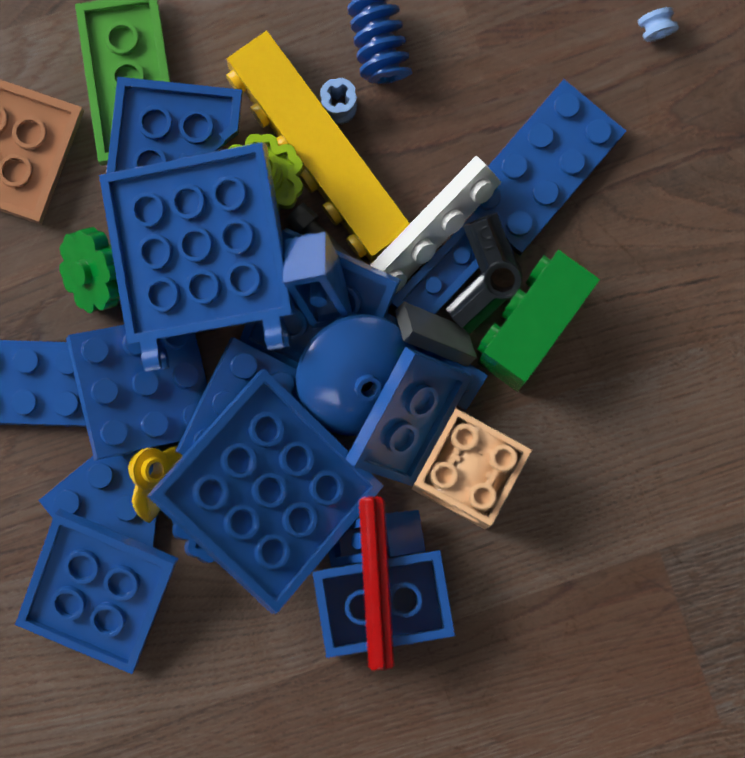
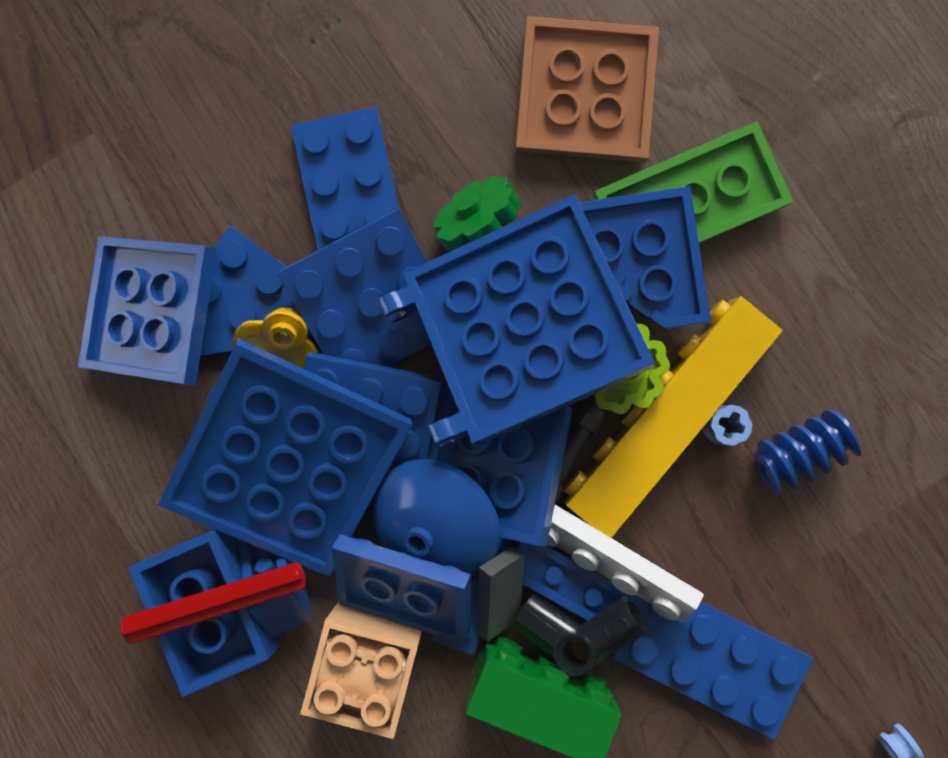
camera: 85 degrees right, 5 degrees up
(316, 279) = (522, 457): blue slope -> none

